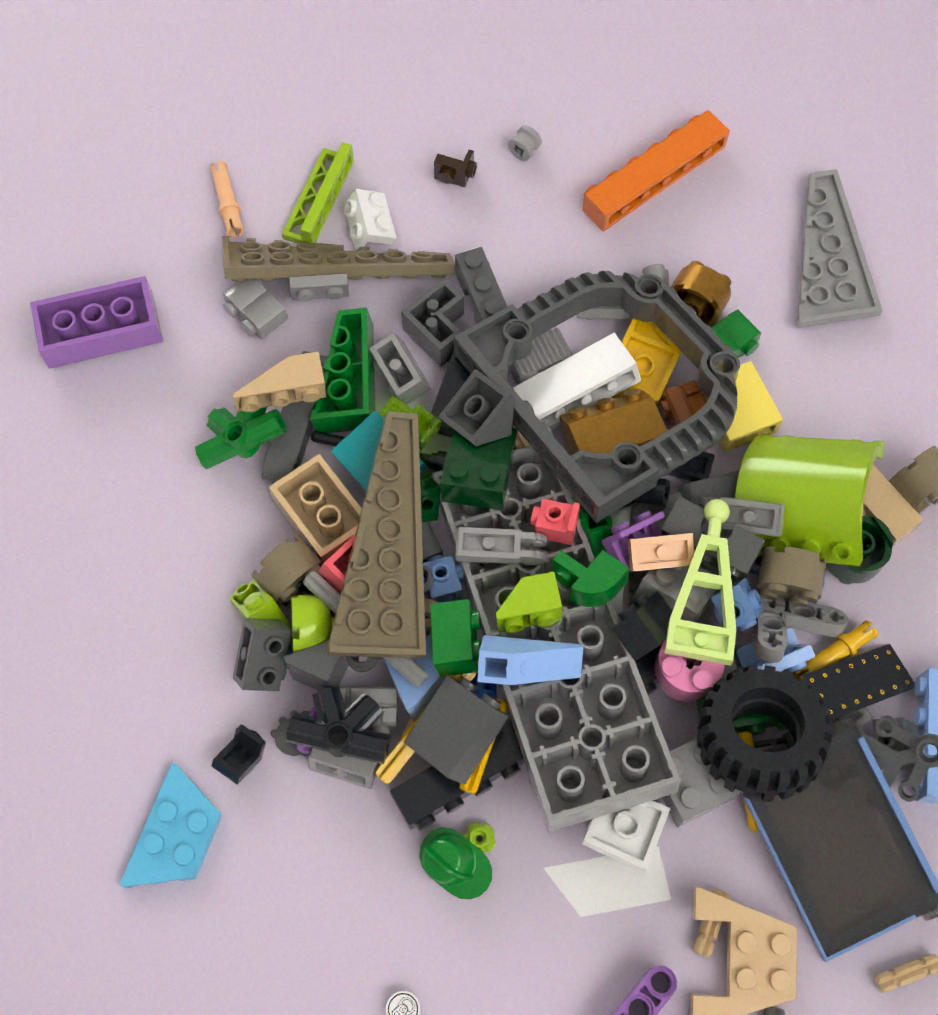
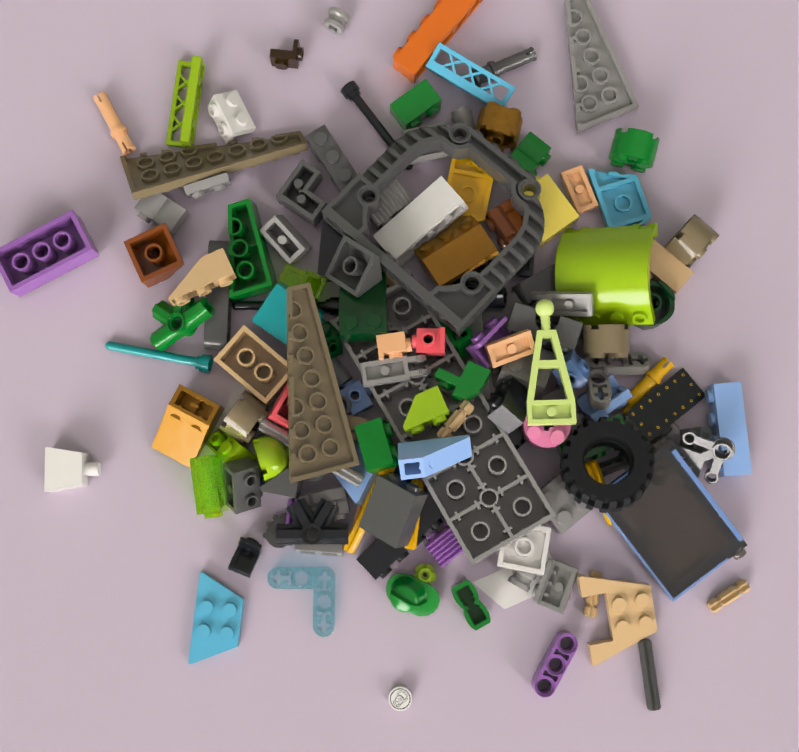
camera: 10 degrees left, 15 degrees up
(39, 587) = (68, 469): none -> white torso
(211, 565) = (186, 425): none -> slope
(217, 645) = (208, 485): none -> clear neon green brick
(230, 351) = (154, 255): none -> dark orange slope
(253, 495) = (203, 363): none -> teal piece
(321, 814) = (312, 583): none -> clear light blue beam
(507, 513) = (393, 345): none -> light nougat brick
(515, 803) = (443, 545): none -> medium lavender brick
(524, 223) = (351, 92): none -> black piece
(530, 881) = (473, 609): none -> green brick
(570, 624) = (456, 419): none -> tan axle
(600, 251) = (416, 106): none -> green brick
(615, 875) = (522, 579): none -> light grey wheel
(659, 896) = (555, 586): none -> light grey bracket
(662, 237) = (462, 83): none -> medium azure fence
(706, 234) = (505, 65): none -> dark grey pin
(788, 392) = (579, 189): none -> light nougat plate
(838, 409) = (619, 198): none -> medium azure wing
(867, 356) = (633, 149): none -> green brick

